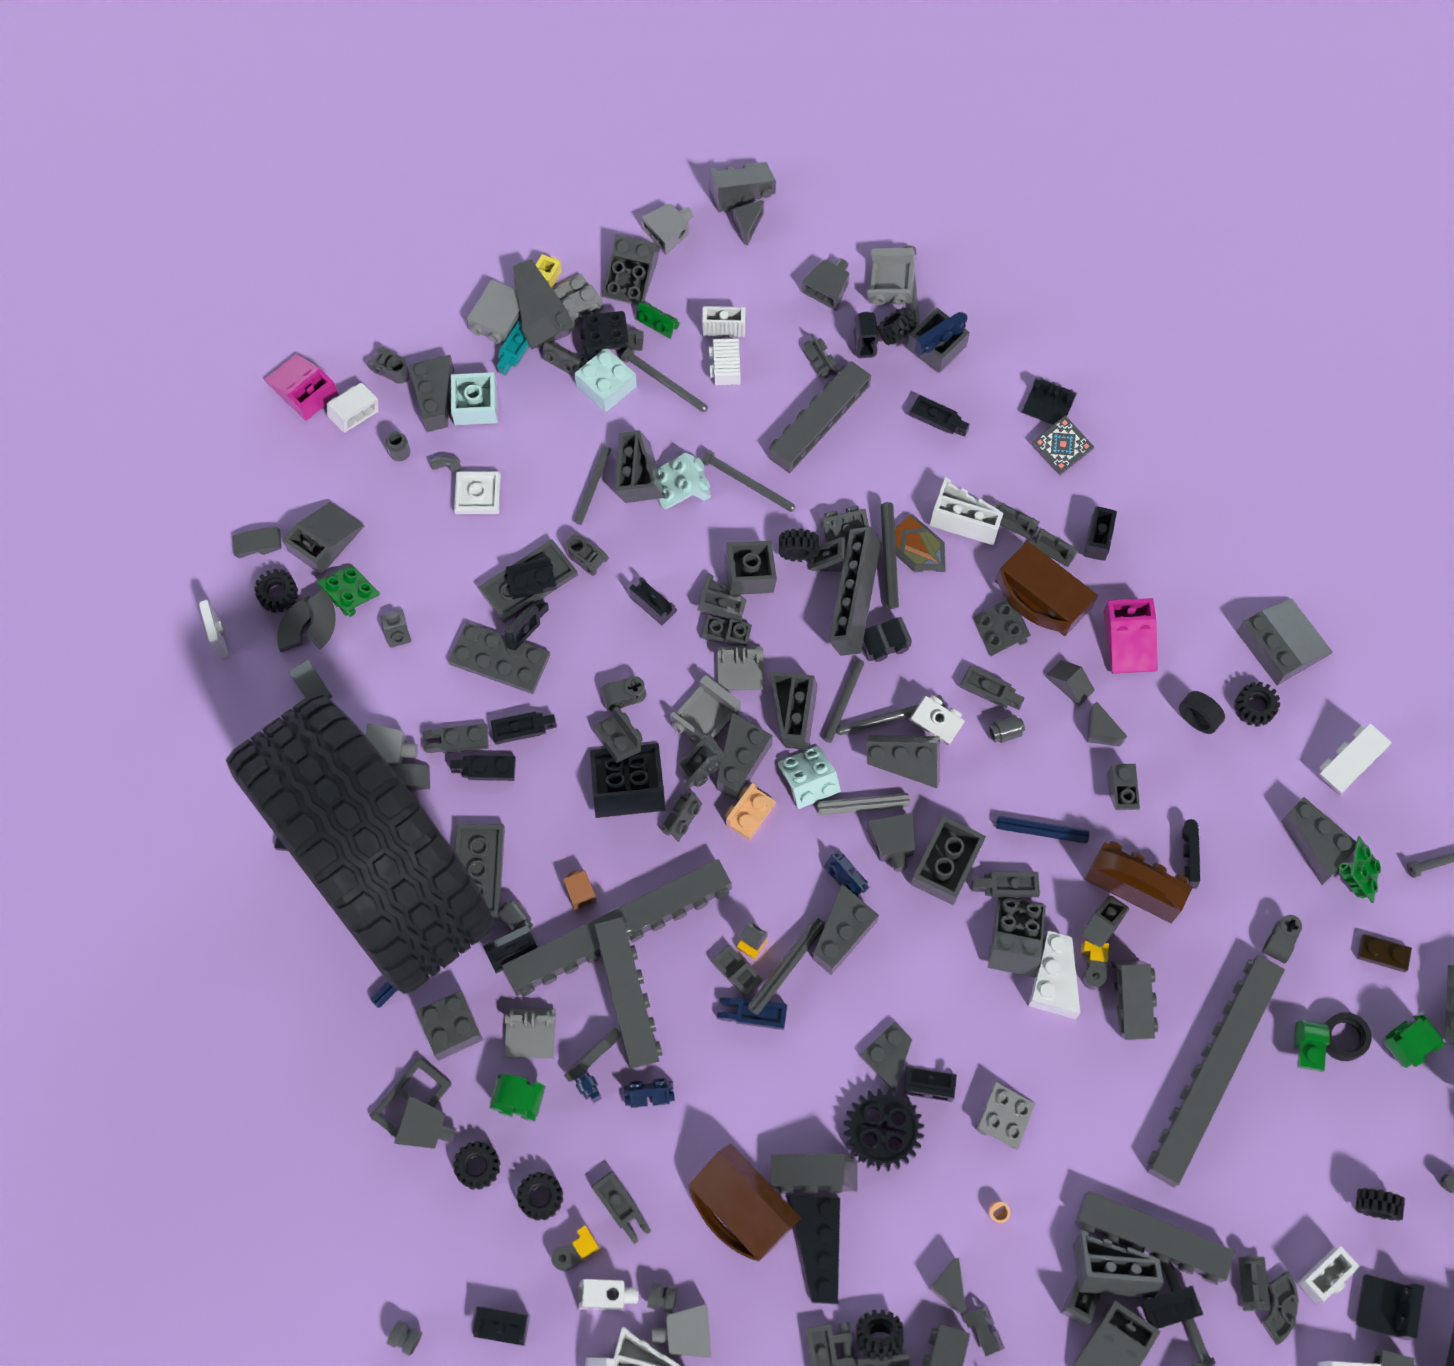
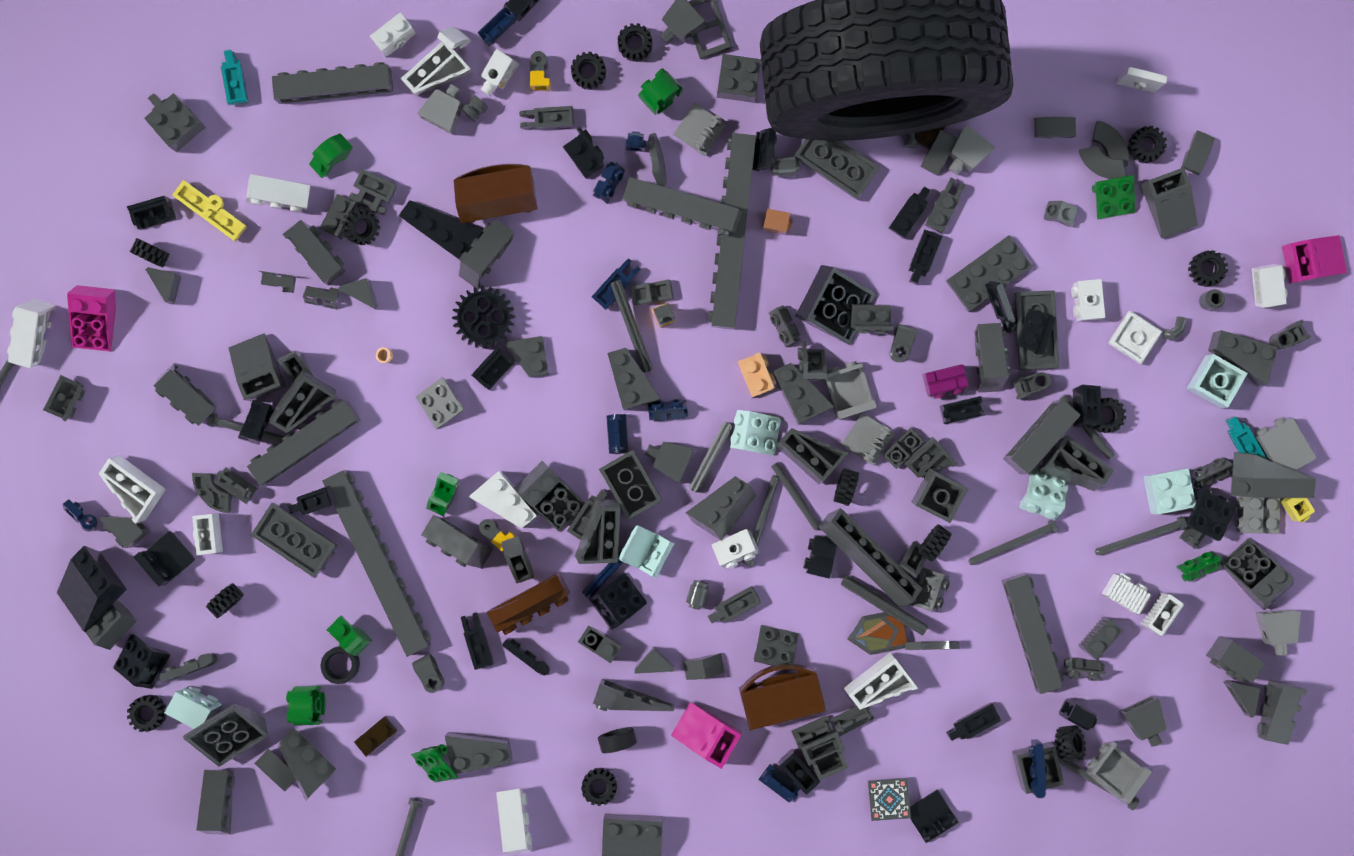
camera: 125 degrees right, 20 degrees up
(365, 458) = (1199, 276): none -> black tyre
(468, 551) = (1088, 300): none -> white brick
(562, 1336) = (497, 26): none -> dark blue hinge
(569, 462) = (1118, 418): none -> black tyre
(574, 492) = (1088, 404): none -> black hinge
(582, 602) = (991, 357): none -> dark grey wedge
(631, 512) = (1041, 436): none -> dark grey brick
(634, 631) = (945, 380): none -> magenta brick
(635, 1138) = (584, 154): none -> black bracket
(723, 241) = (1234, 660): none -> dark grey brick
(782, 359) = (1100, 638): none -> dark grey brick
(802, 655) = (846, 487): none -> black tyre
(892, 487) = (938, 645): none -> dark grey tile
(906, 910) = (617, 433): none -> dark blue hinge
(1001, 801) = (646, 551): none -> light aqua bracket
(1019, 854) = (601, 534): none -> dark grey wedge
(1068, 518) = (825, 755): none -> dark grey plate
(1070, 799) = (618, 601): none -> black bracket
(1096, 1046) = (443, 494): none -> green brick
(1123, 545) = (779, 783): none -> dark blue hinge
(1159, 736) = (618, 697): none -> dark grey wedge
(1207, 1178) = (314, 501): none -> black hinge
(1216, 911) = (477, 643): none -> black hinge
(1261, 1175) = (294, 540): none -> dark grey piece

